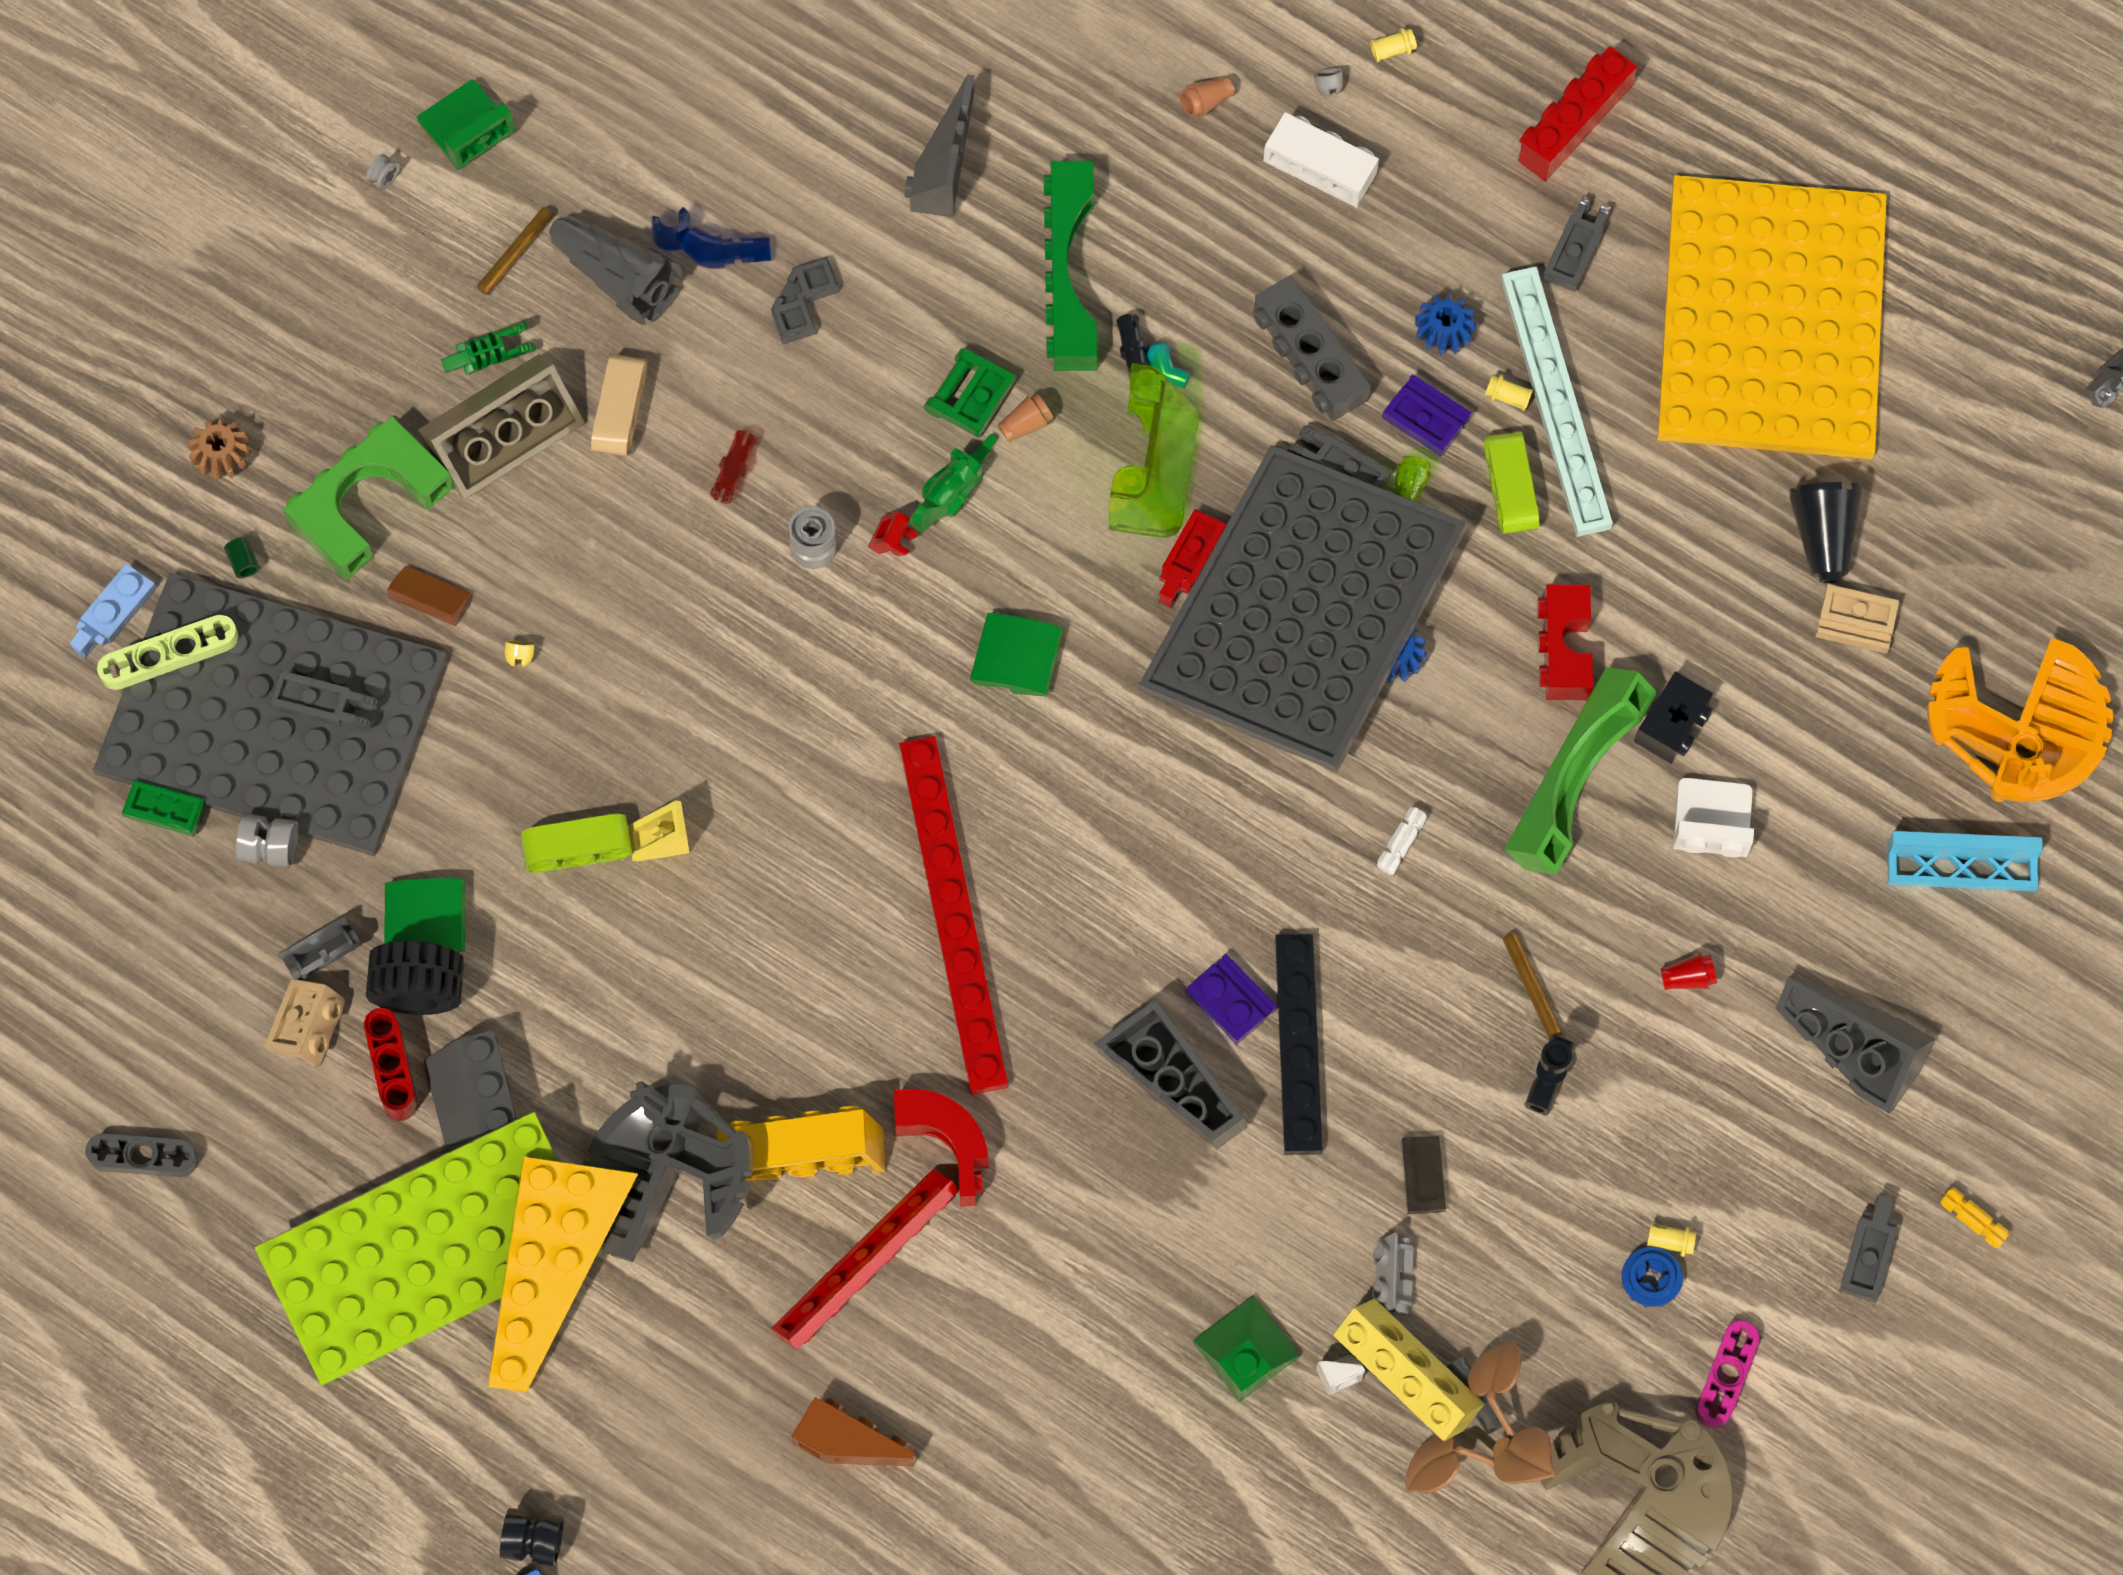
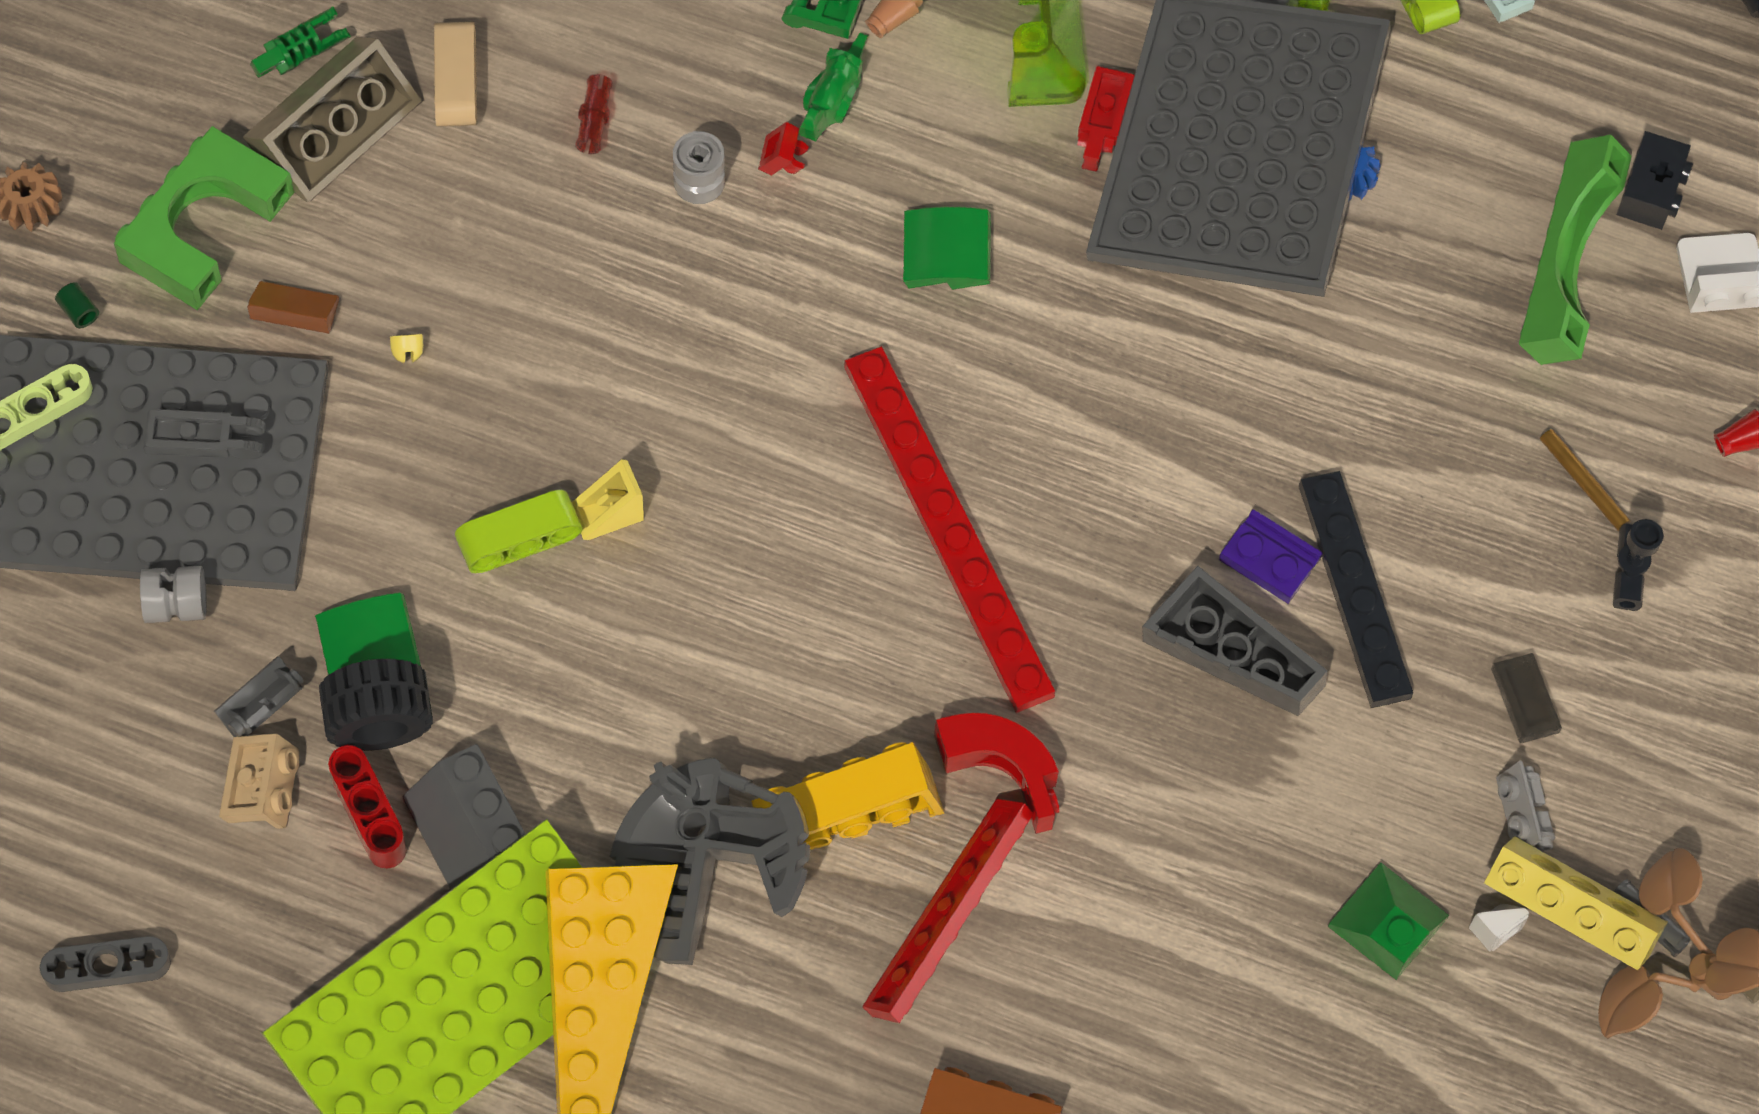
camera: 15 degrees left, 5 degrees down
(163, 808) = (48, 583): green plate -> none
(1401, 840) = (1405, 358): white axle -> none
(1565, 672) = (1526, 155): red arch -> none

